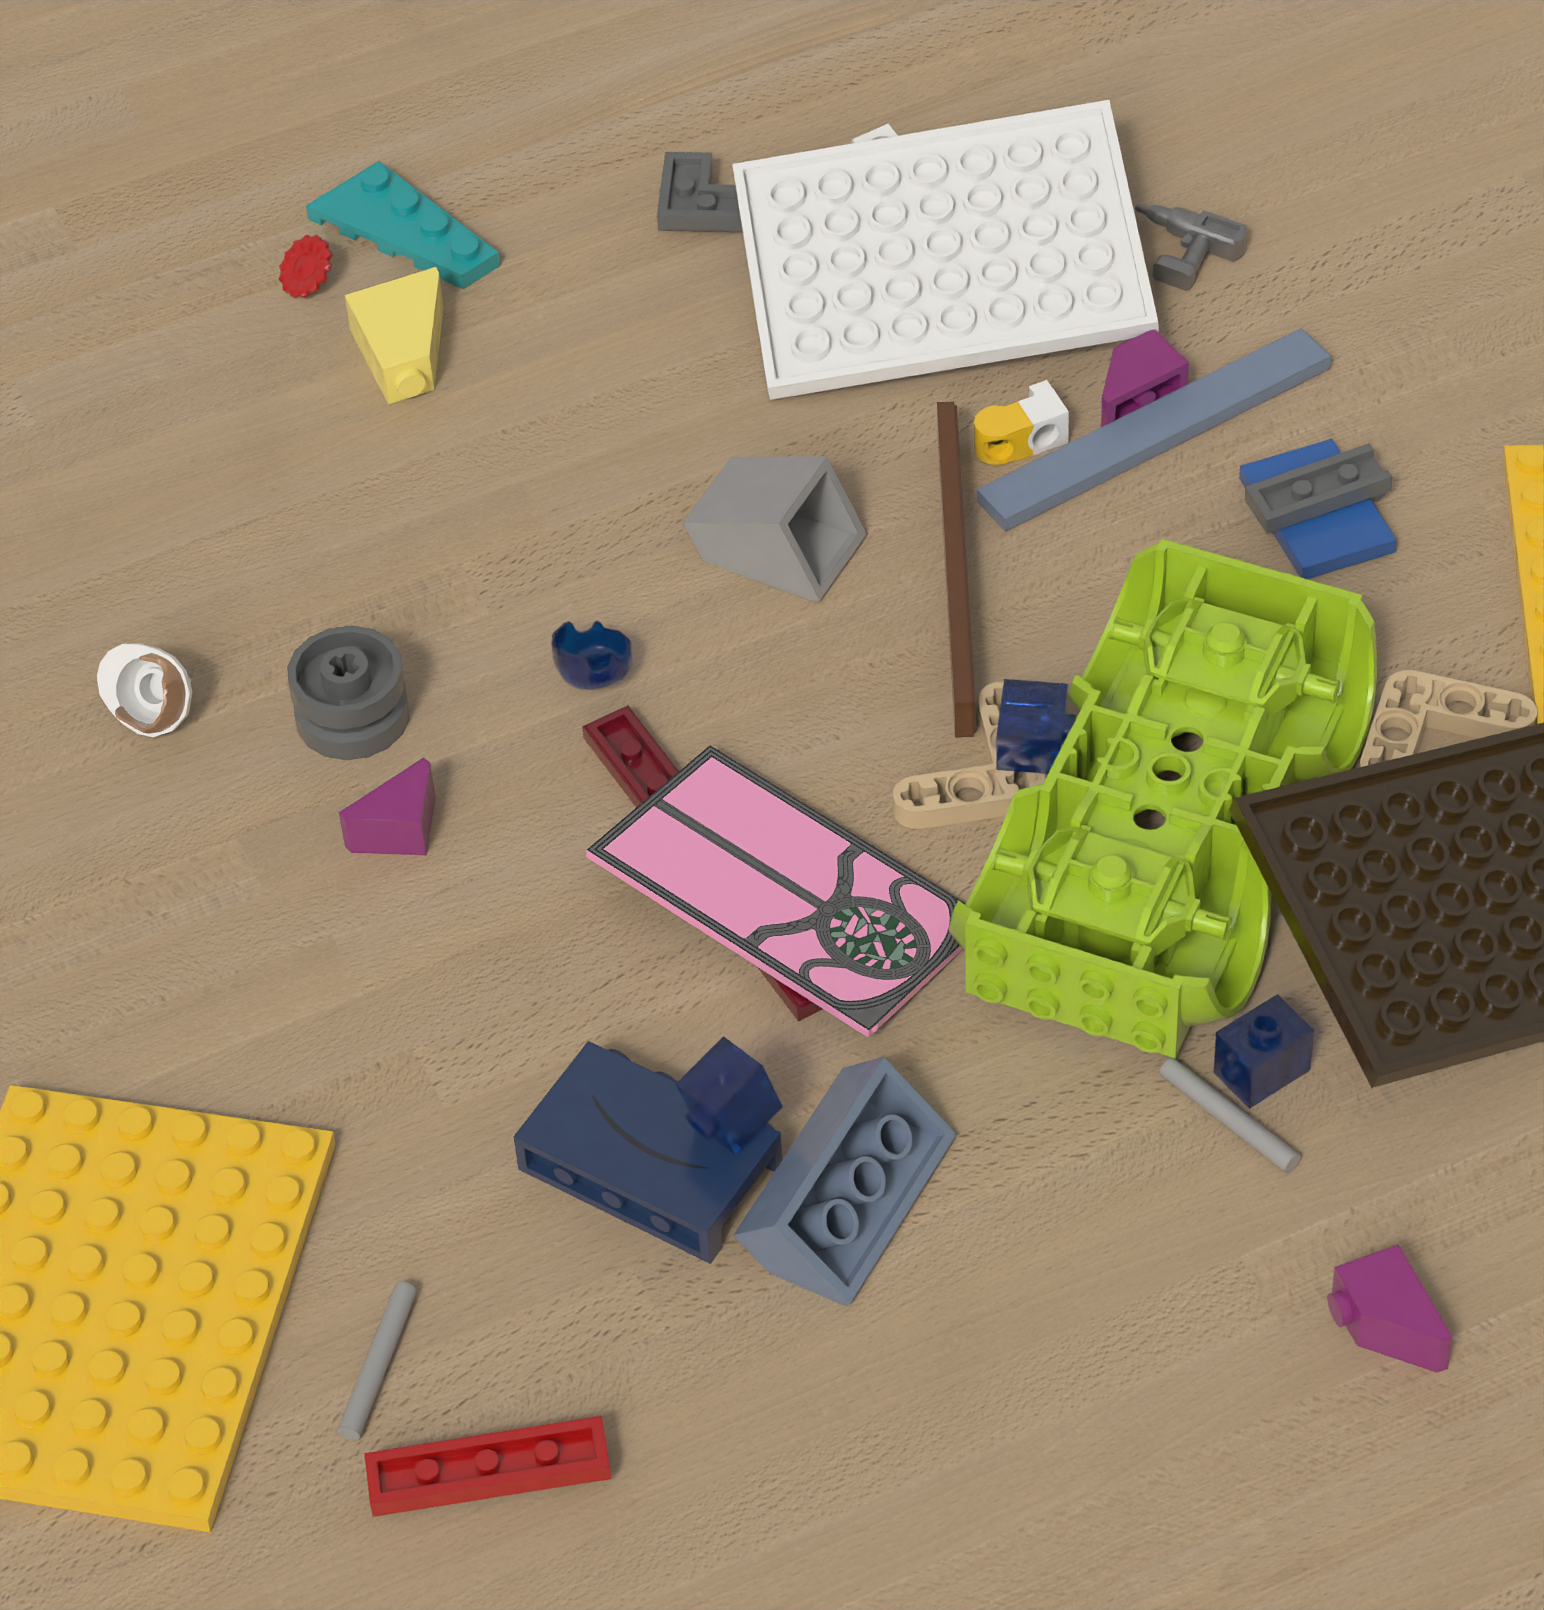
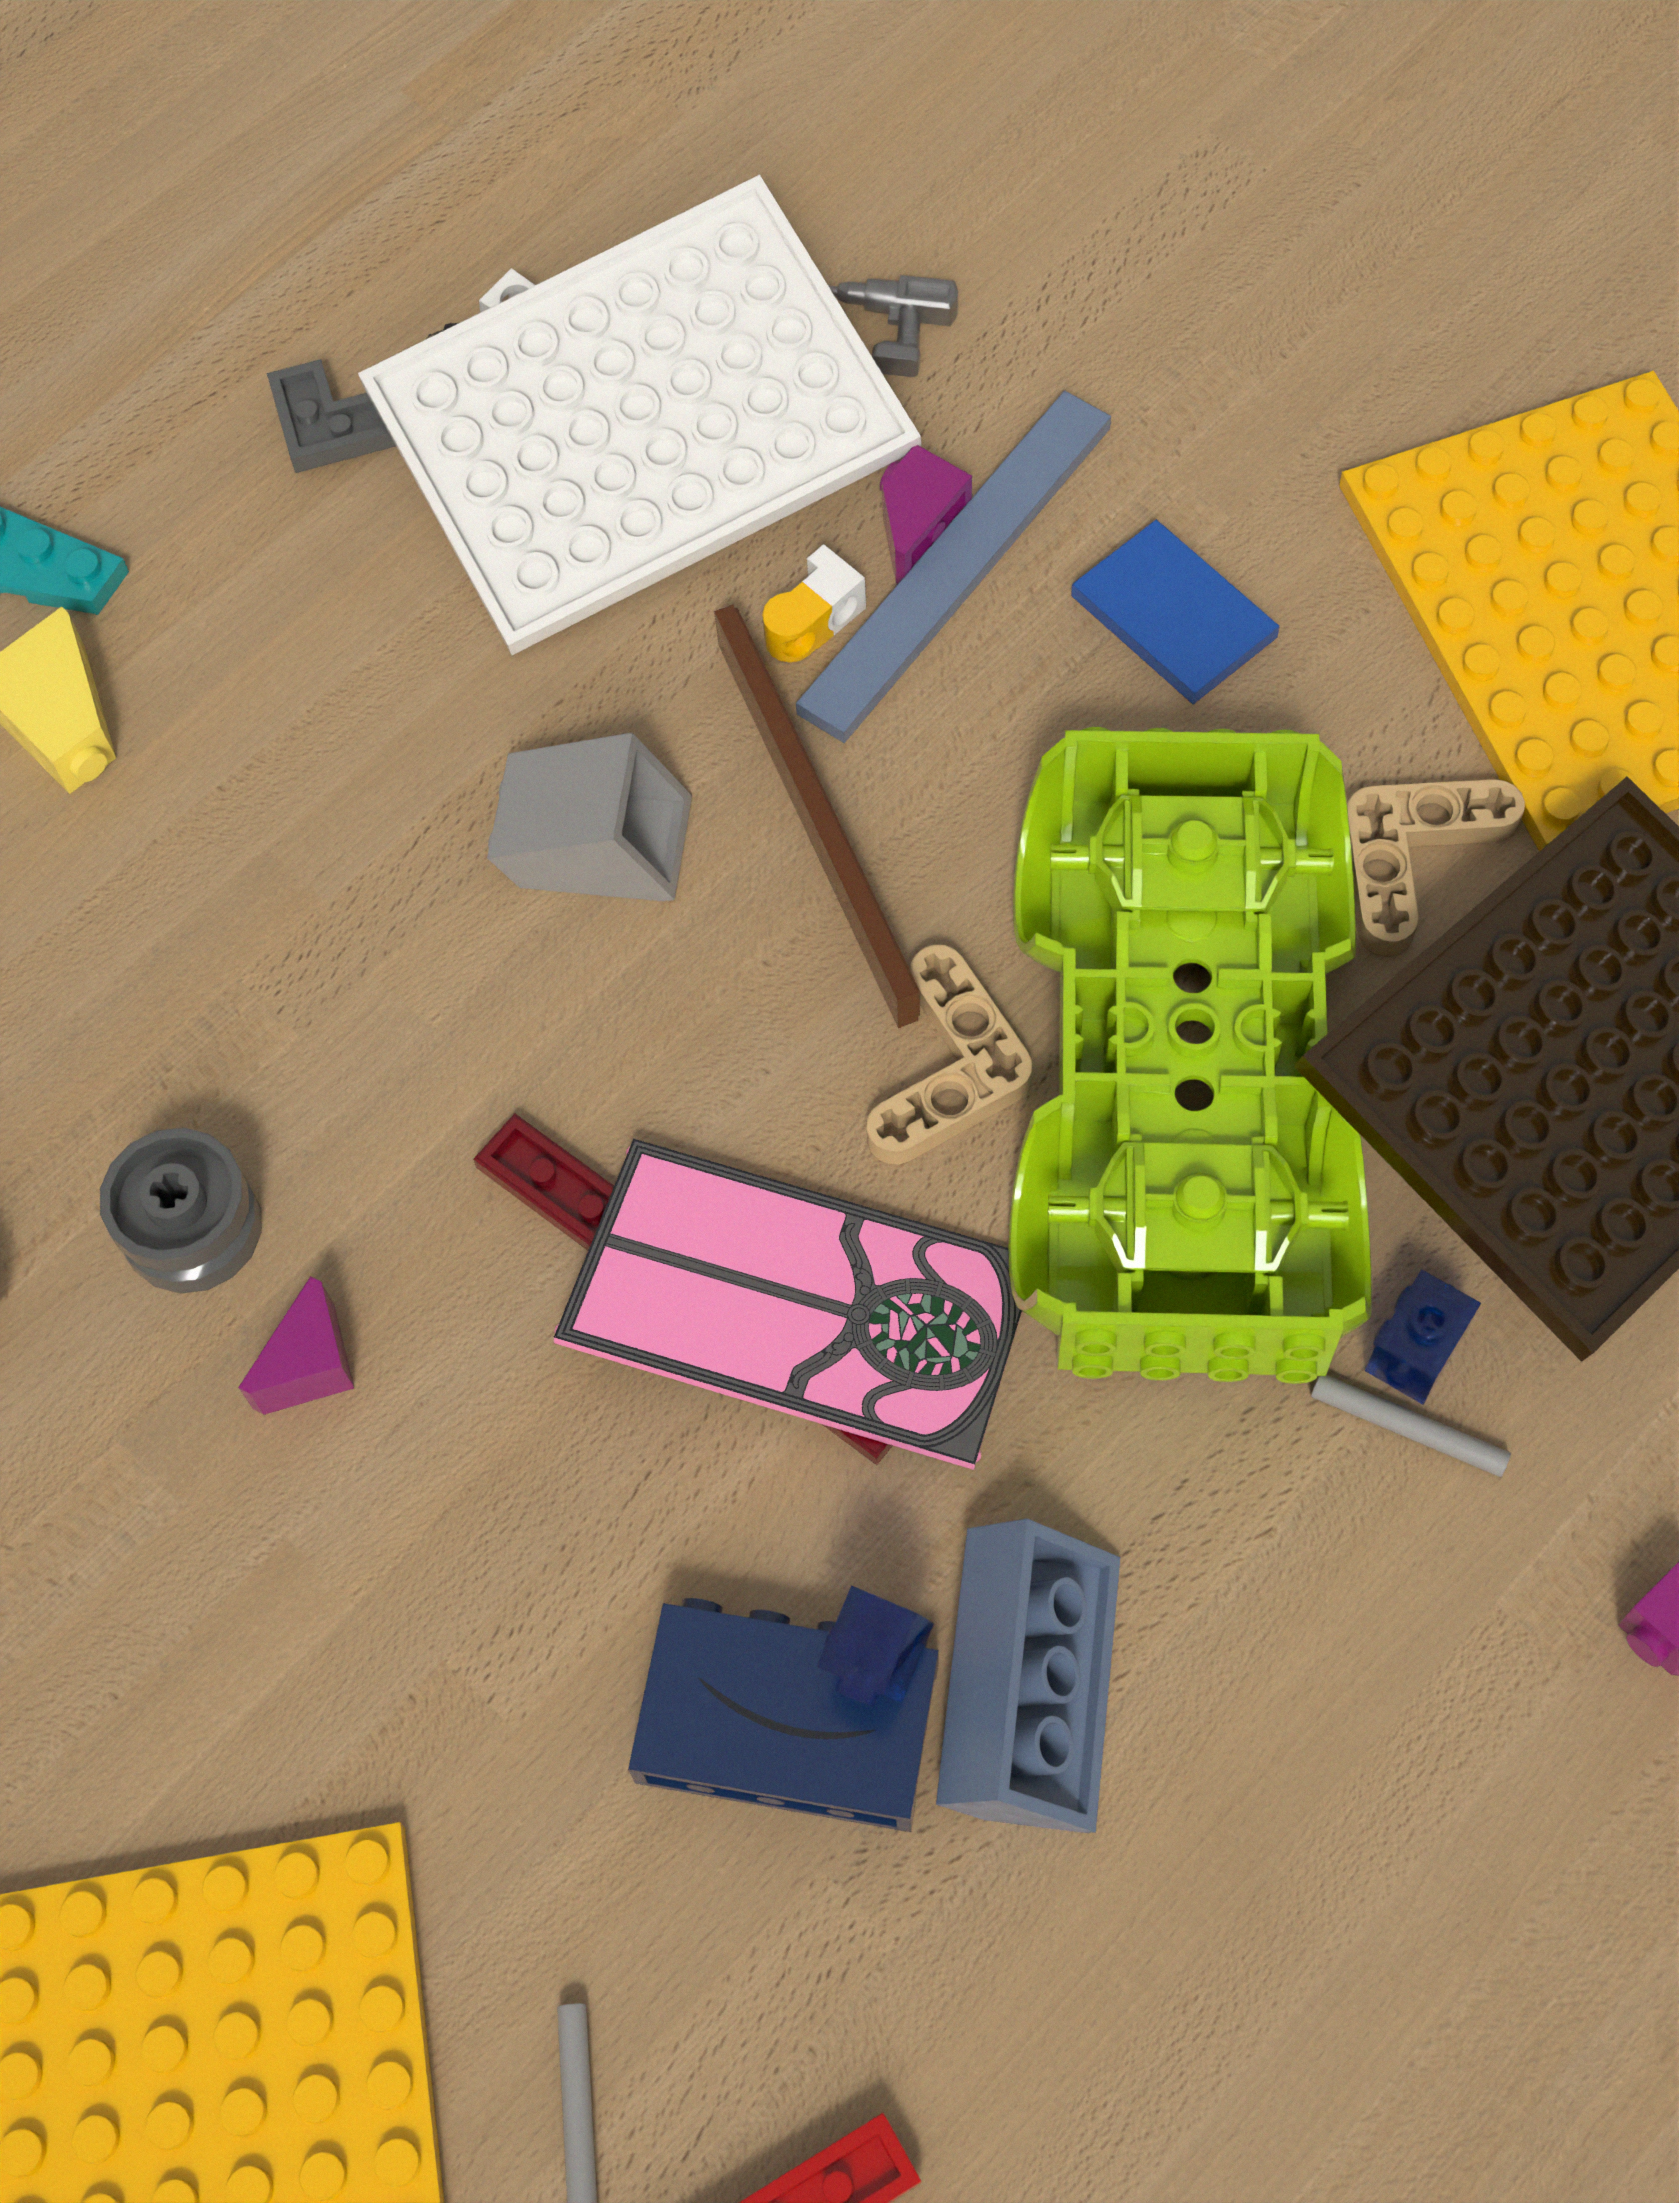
camera: 20 degrees left, 15 degrees up
(592, 656) = (448, 1063): clear blue hair -> none
(1032, 725) = (999, 1002): clear blue head -> none
(1318, 488) = (1172, 590): dark grey hinge -> none

